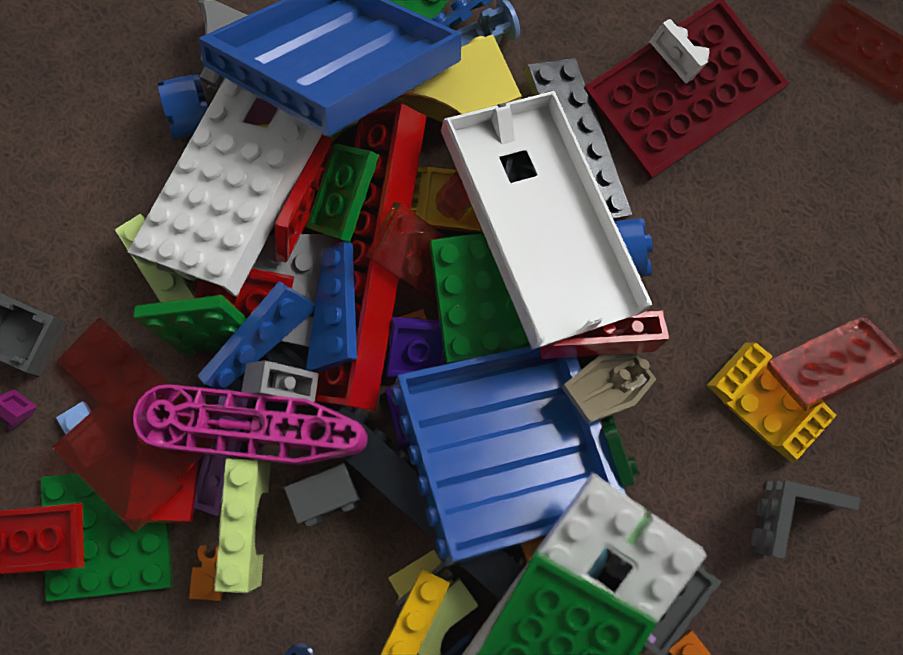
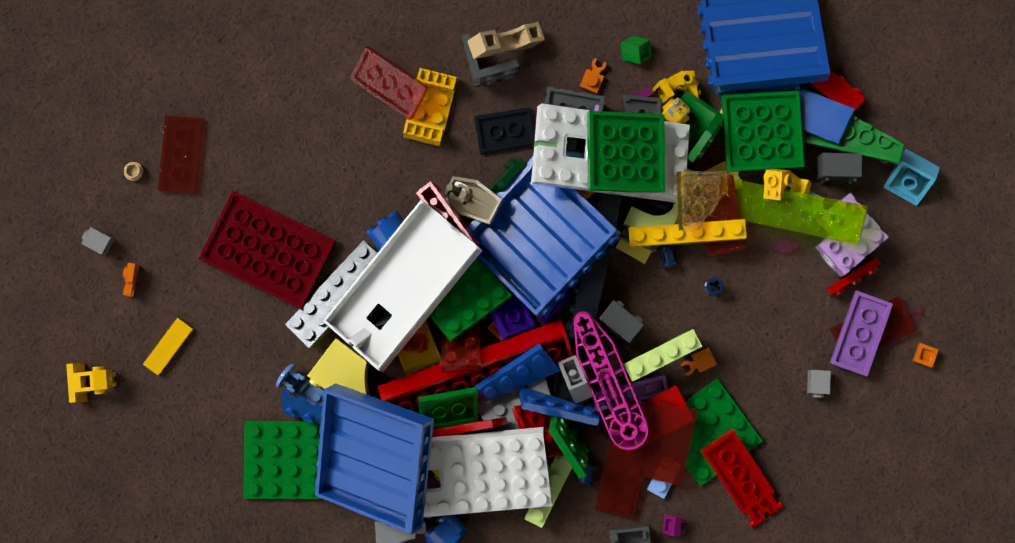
camera: 115 degrees left, 5 degrees up
(148, 336) = (590, 474): none -> dark blue bush
(378, 617) = (668, 256): none -> dark blue bush
(679, 51) = (253, 259): white tile -> none
(683, 485) = (504, 130): none -> black tile
(830, 528) = (493, 43): none -> tan arch

